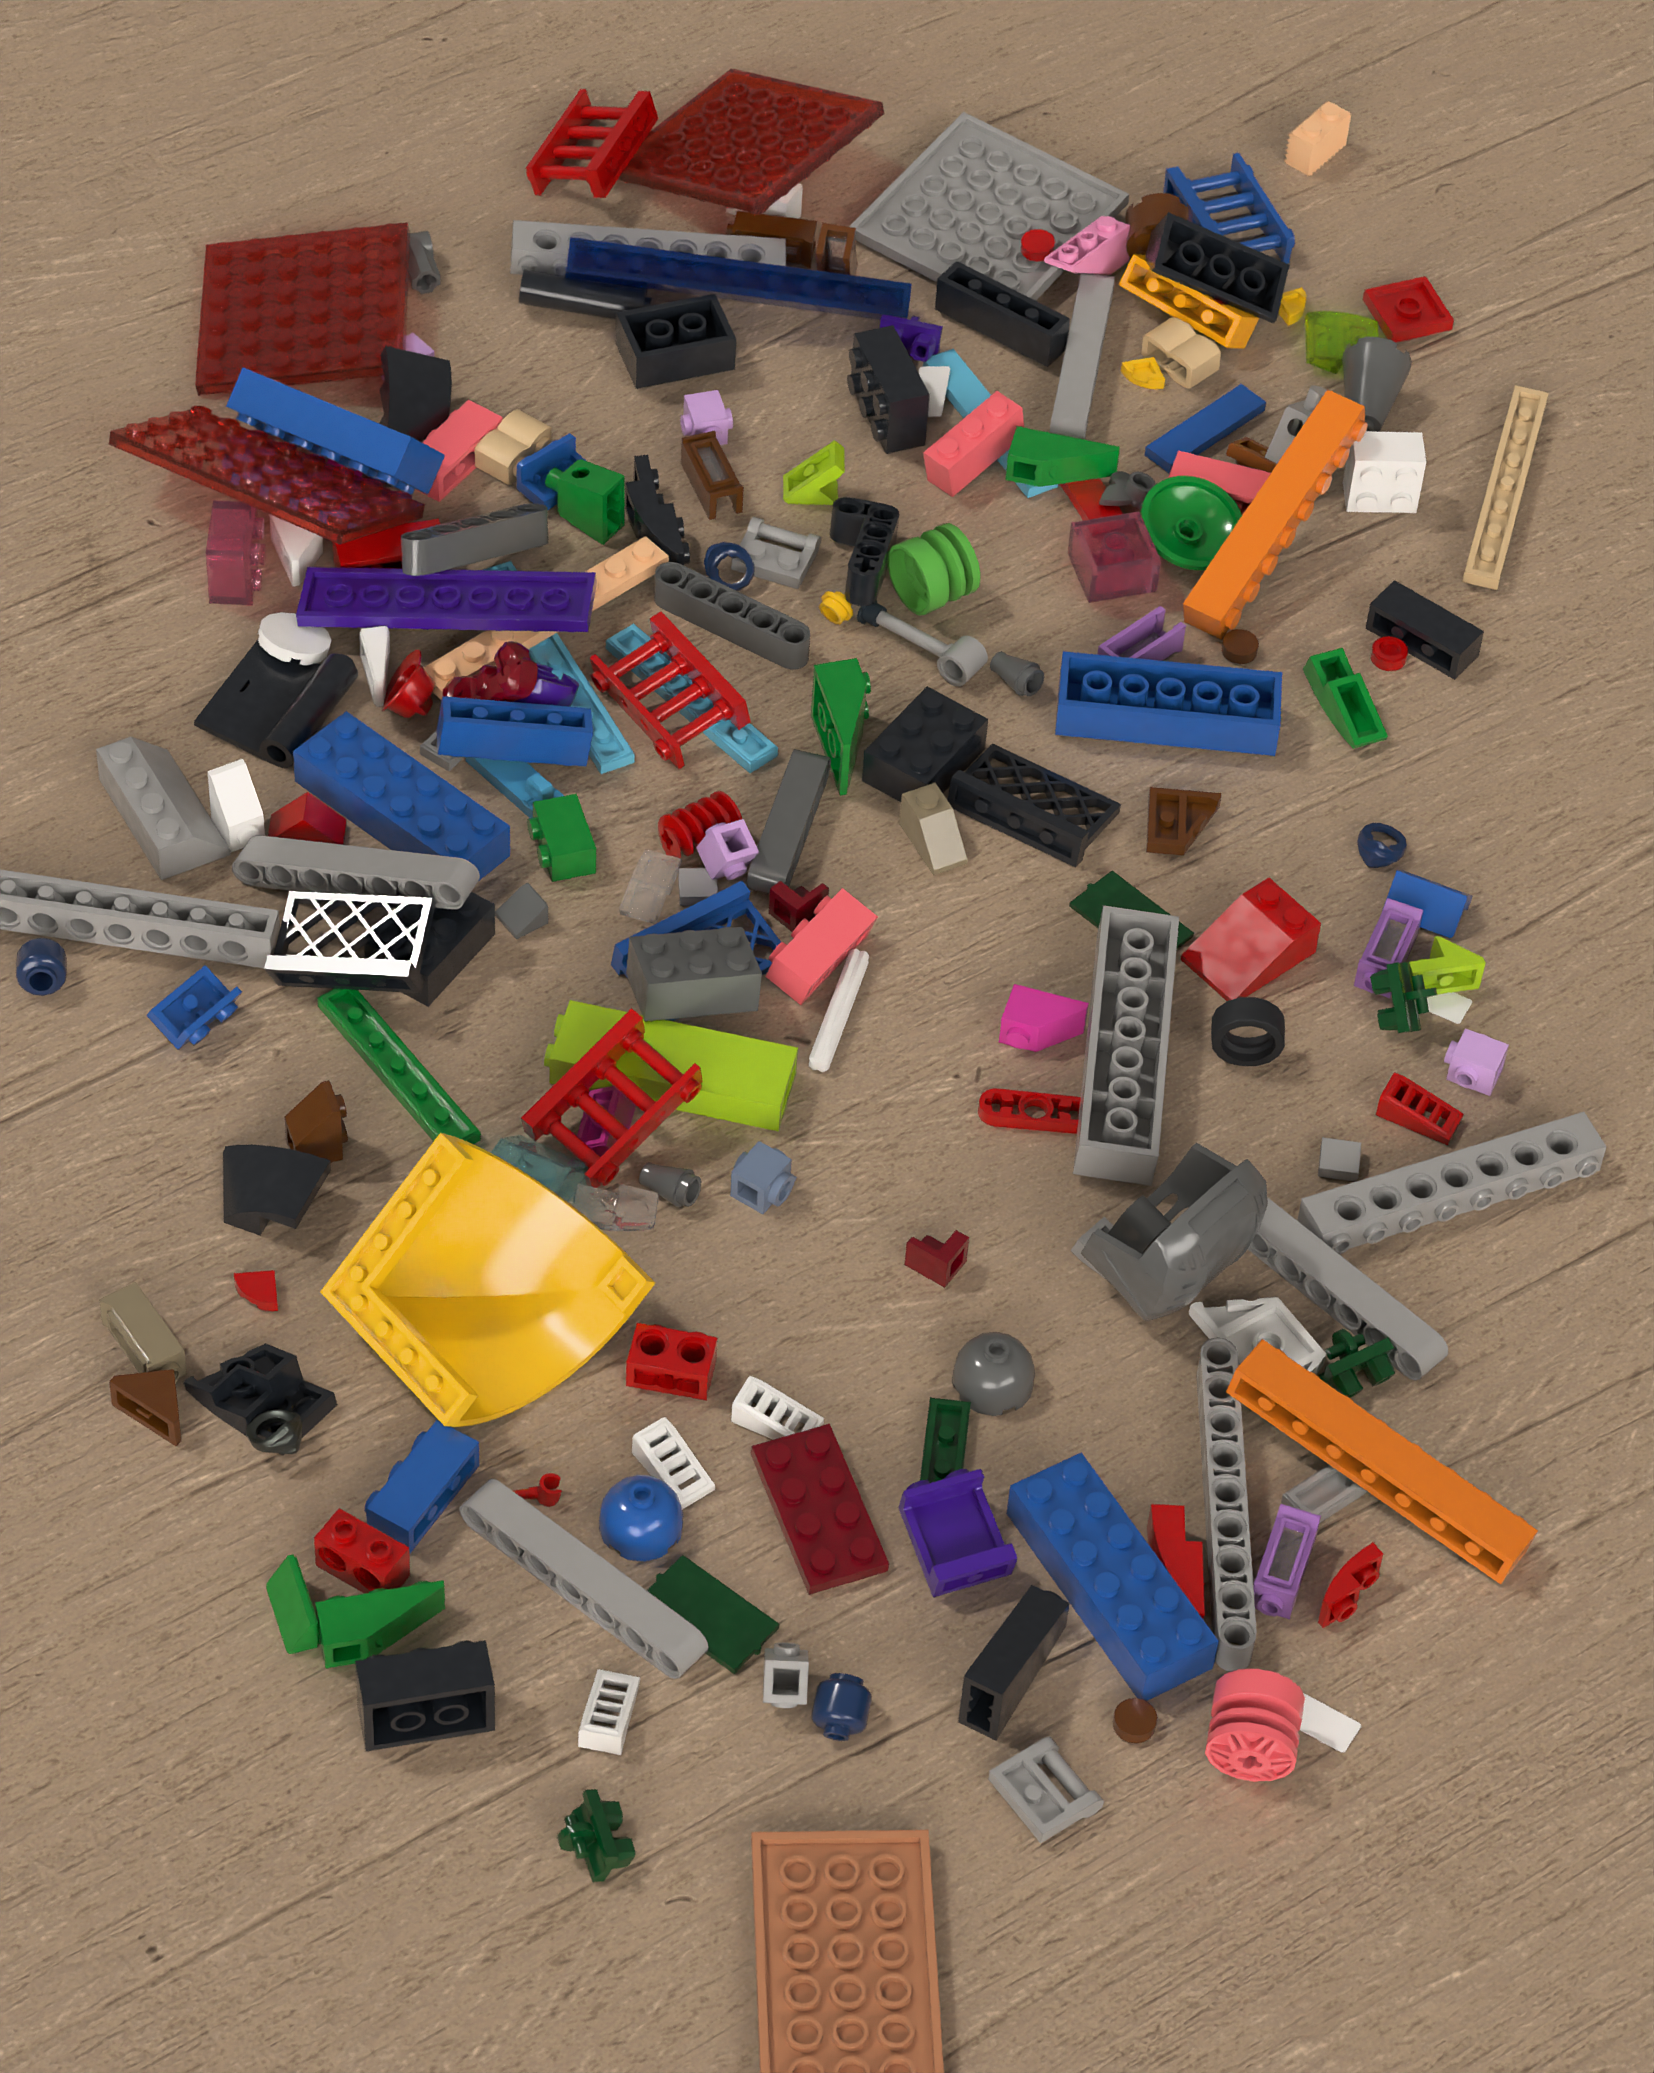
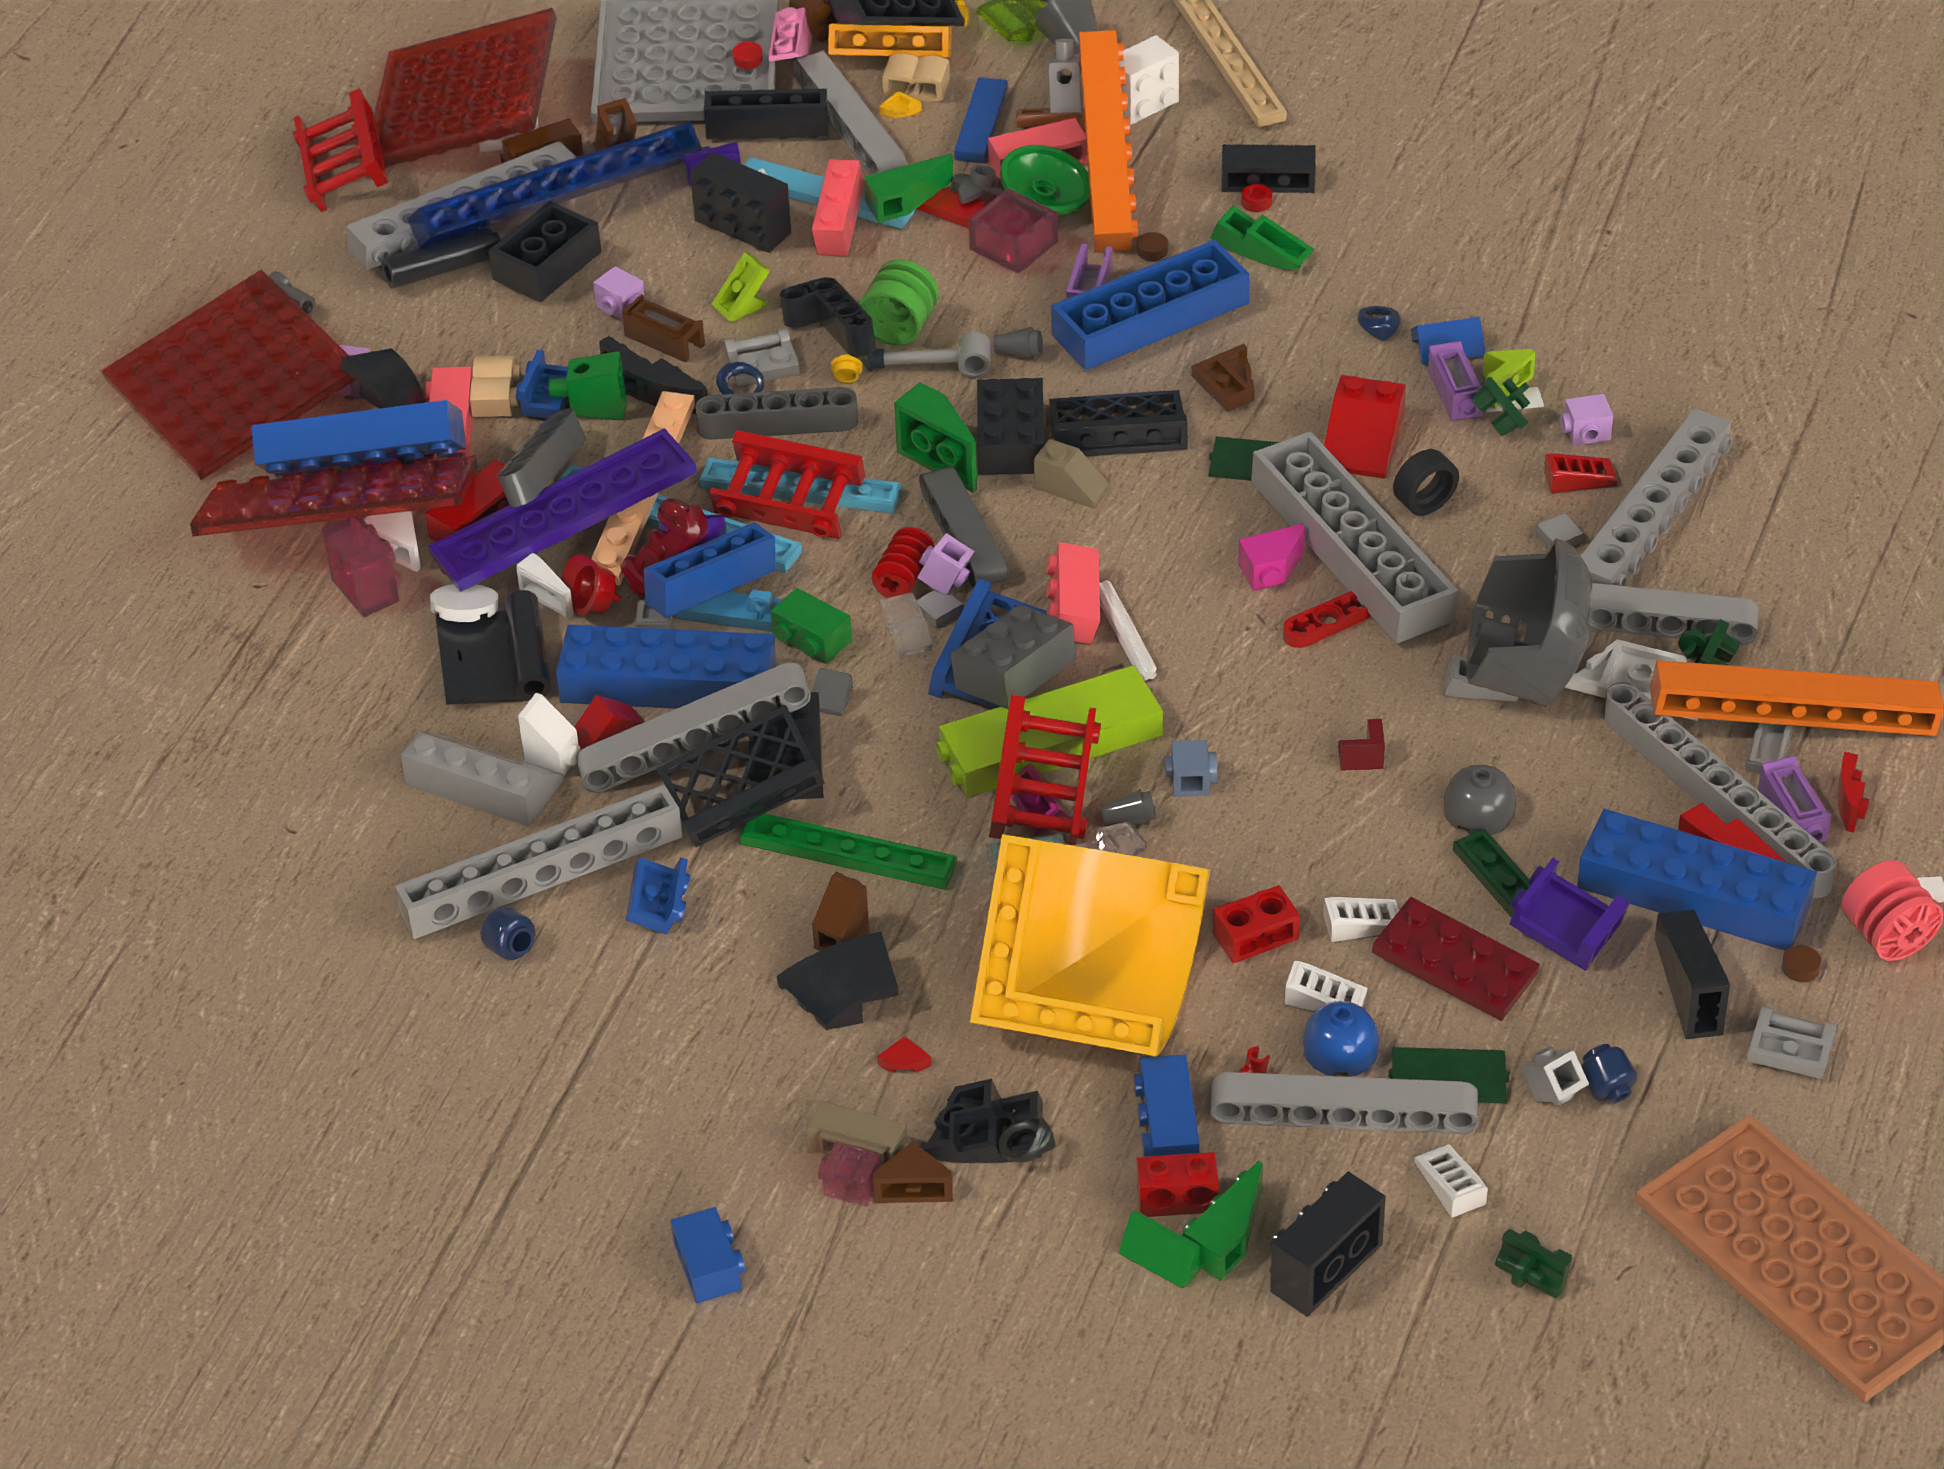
camera: 30 degrees left, 5 degrees down
(101, 1359) = (849, 1174): none -> clear pink brick
(793, 906) = (1024, 581): dark red panel -> none

